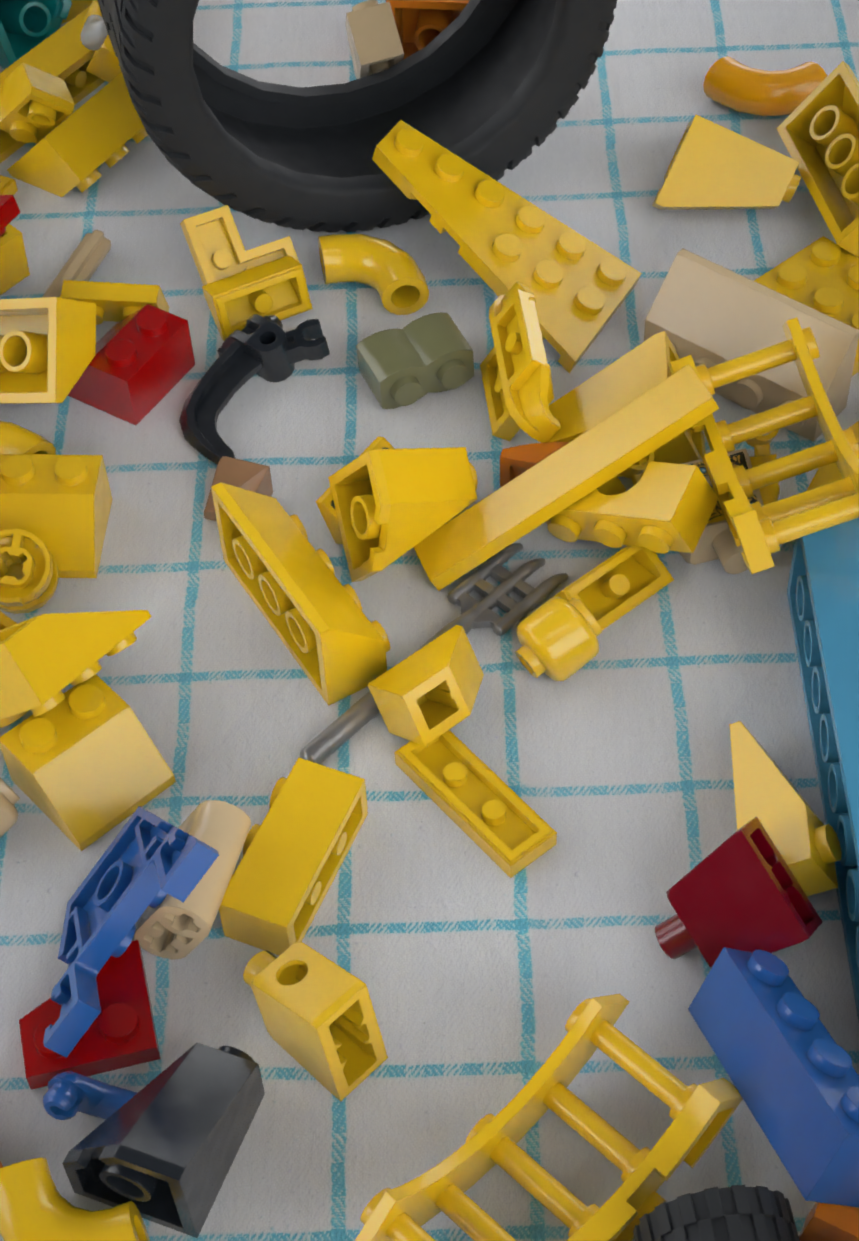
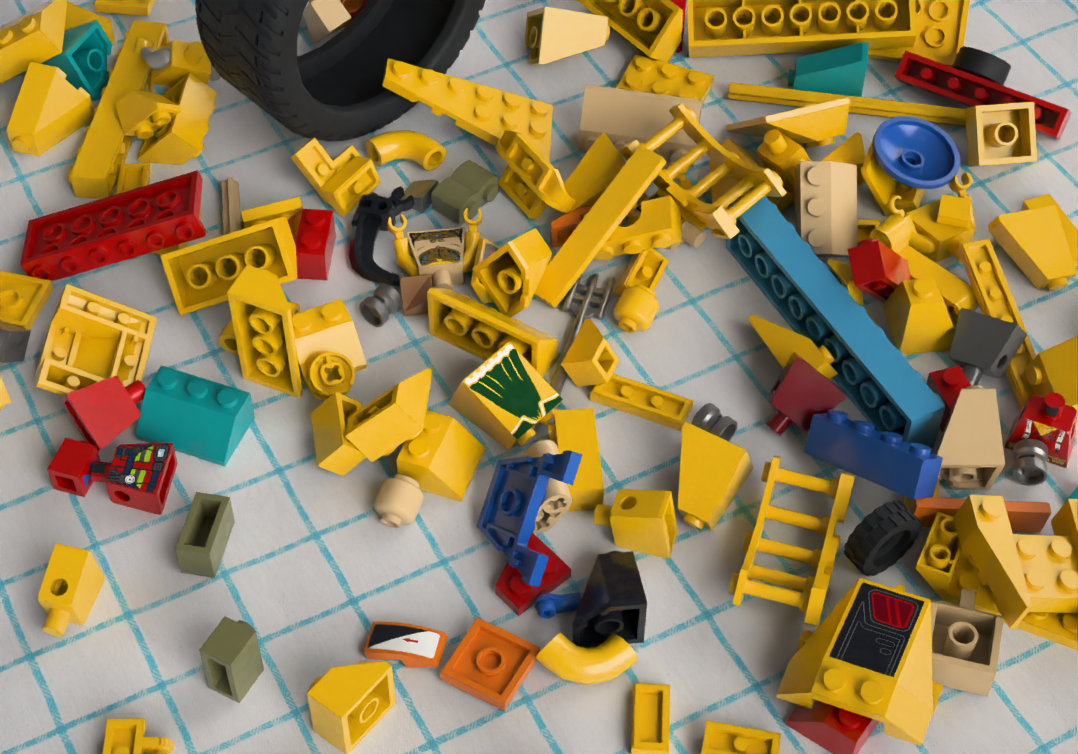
camera: 30 degrees left, 0 degrees up
(171, 488) = (381, 305): none -> flat silver wheel
(244, 705) = (506, 398): none -> slope
(306, 436) = (437, 252): none -> torso
(344, 341) = (421, 192): none -> flat silver slope
(480, 984) = (709, 476): none -> yellow slope
(557, 886) = (712, 421): none -> flat silver wheel

